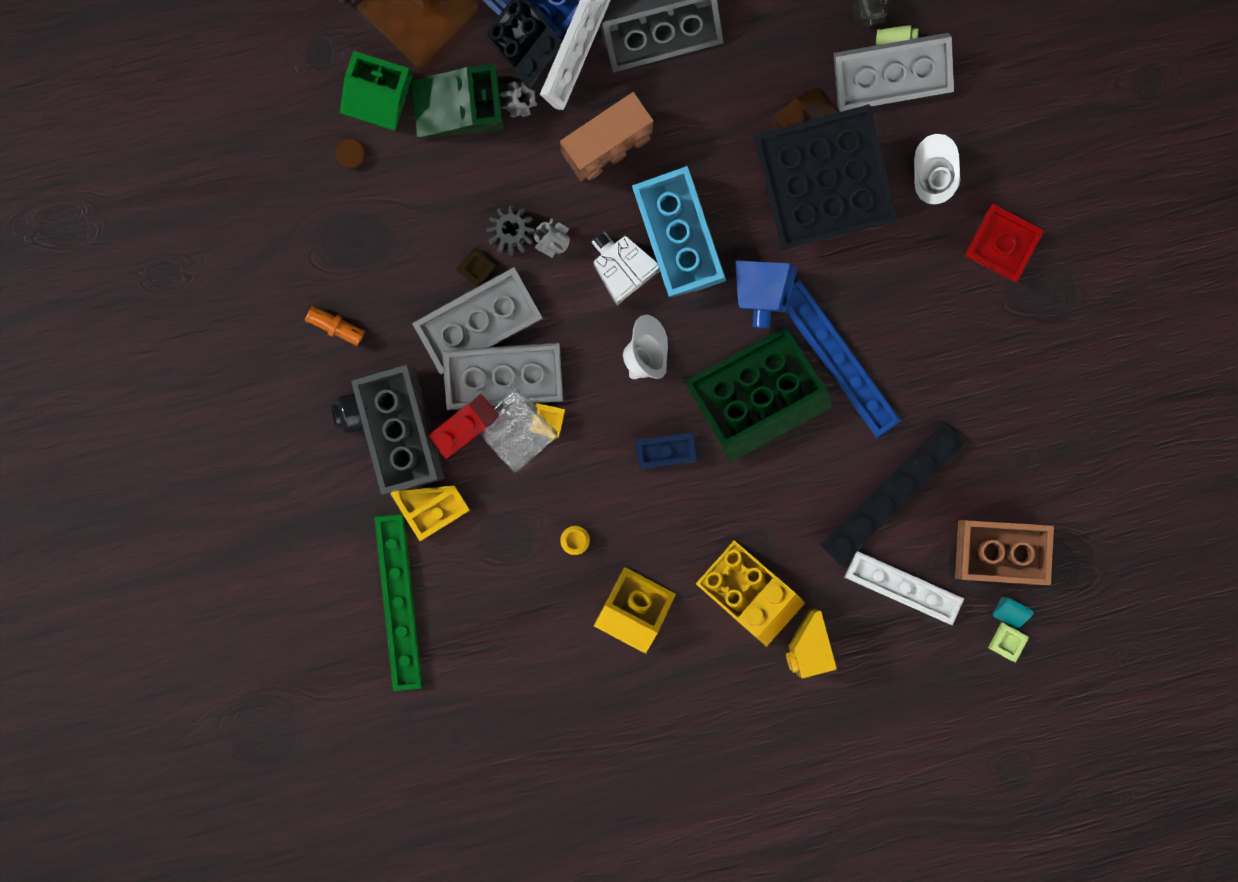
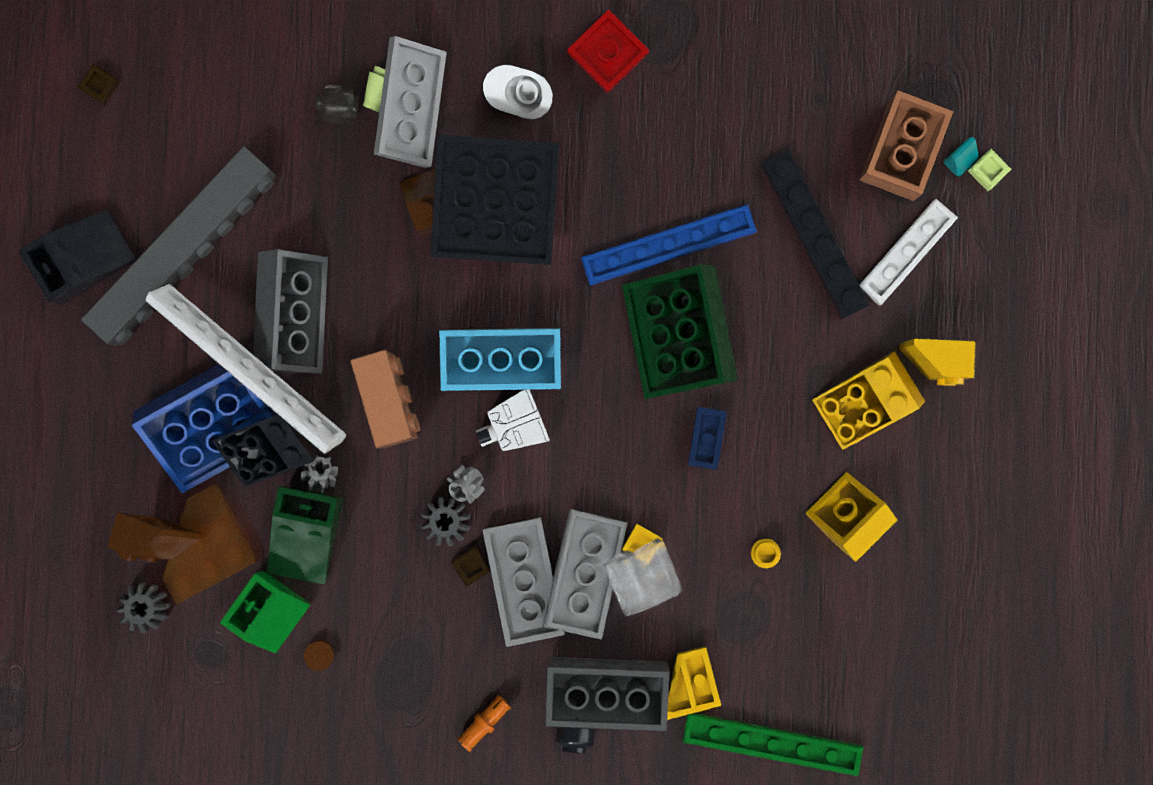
camera: 75 degrees left, 0 degrees up
(463, 426) = (624, 628): red brick -> none
(647, 350) = (604, 425): white piece -> none
(764, 289) = (581, 294): blue torso -> none

